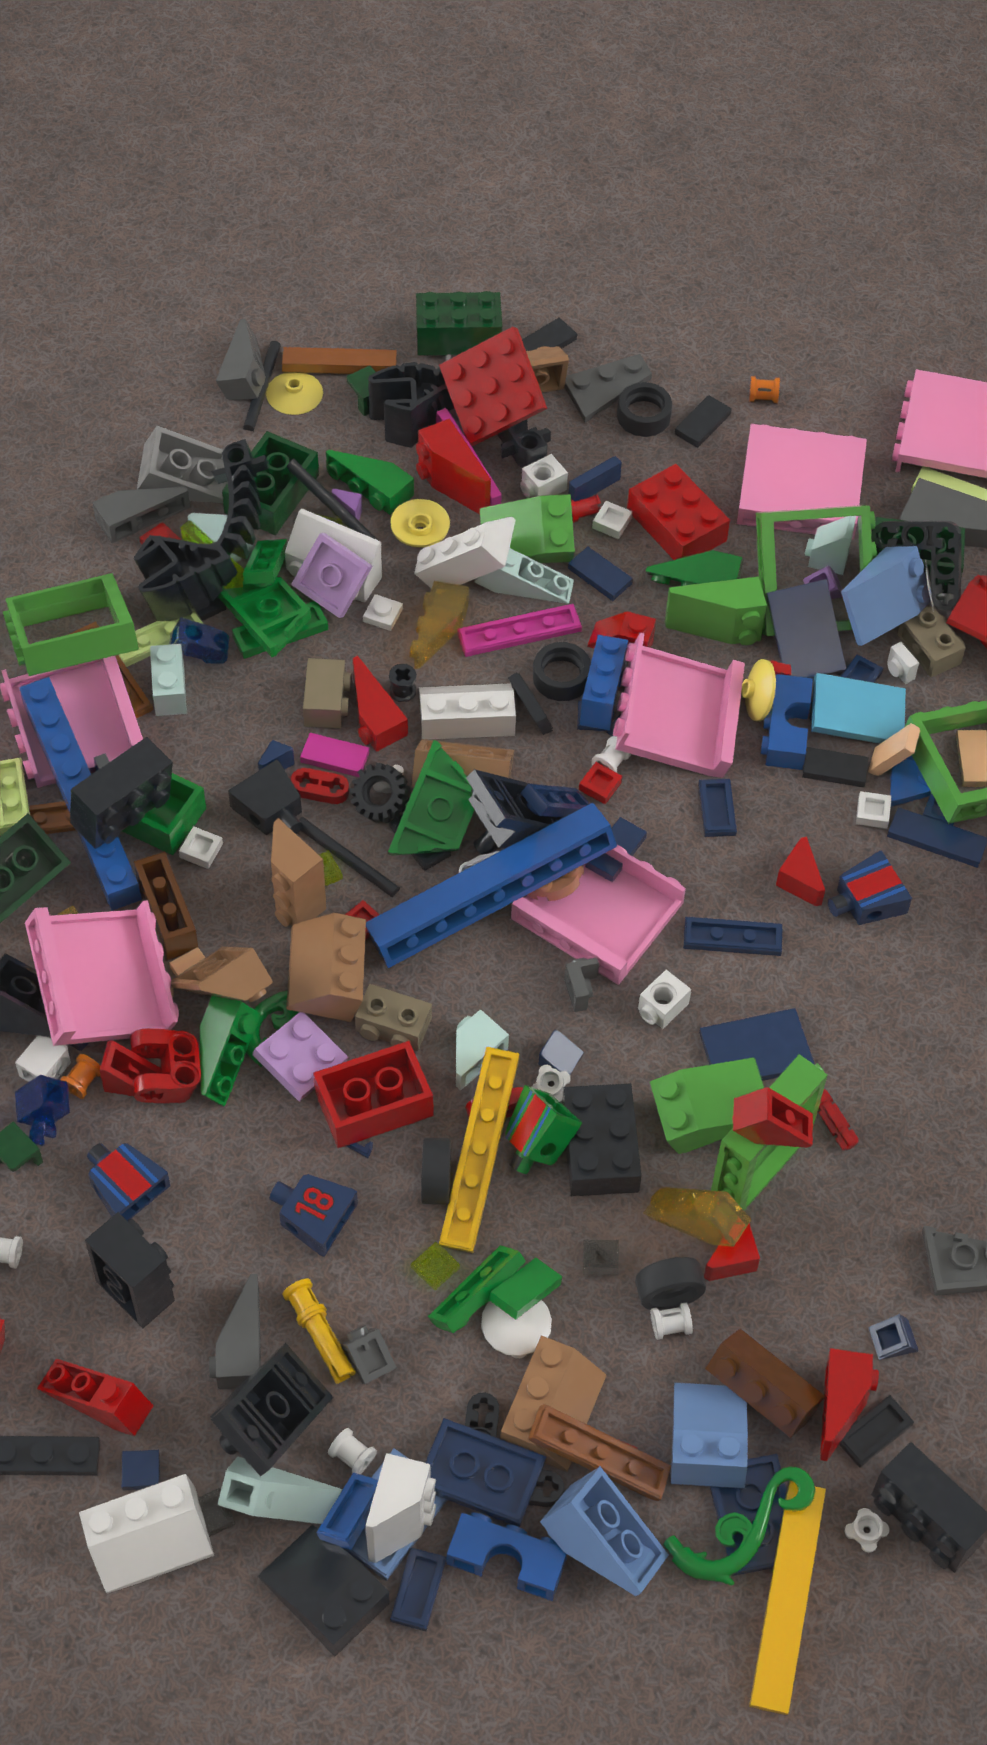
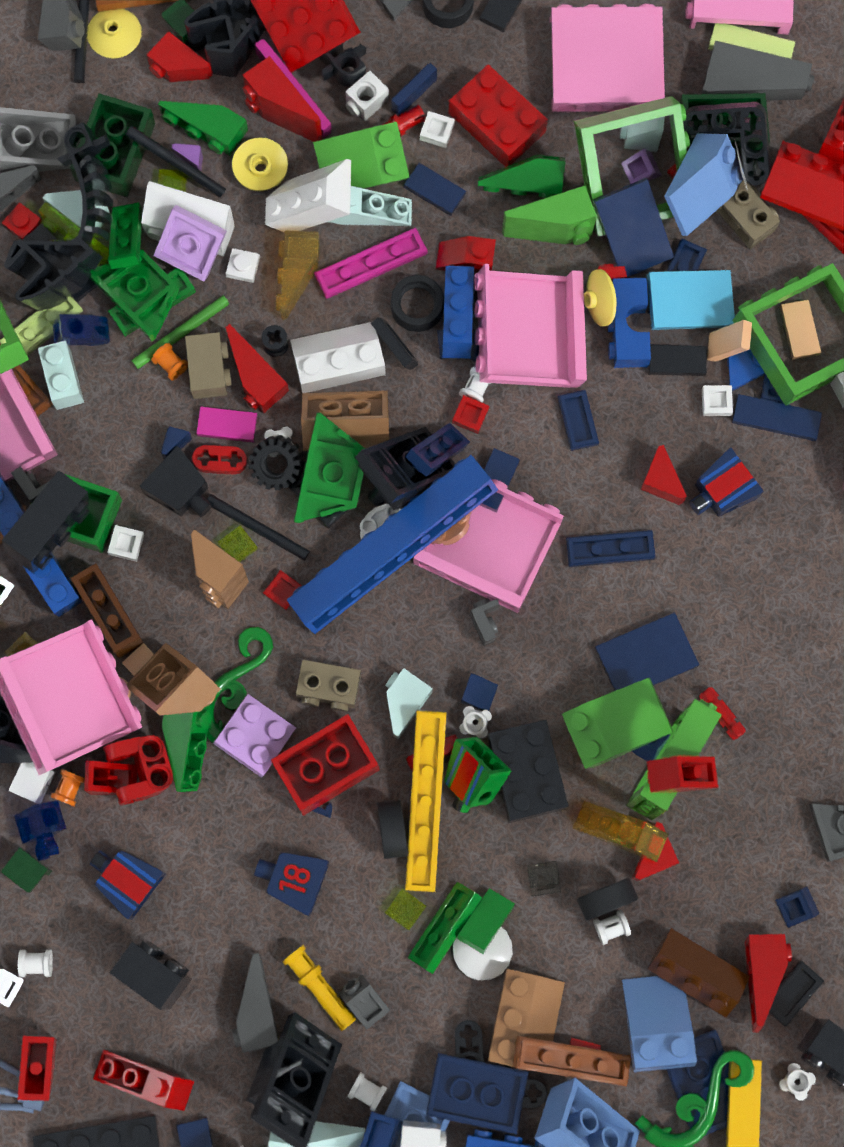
camera: 10 degrees left, 20 degrees up
(286, 686) = (170, 361): none -> orange bush
(301, 664) = (182, 330): none -> bright green bar
(327, 966) = (261, 648): medium nougat slope -> none
(354, 422) = (177, 61): none -> red slope
(666, 988) = (566, 615): white brick -> none
(902, 663) = (723, 243): white plate -> none

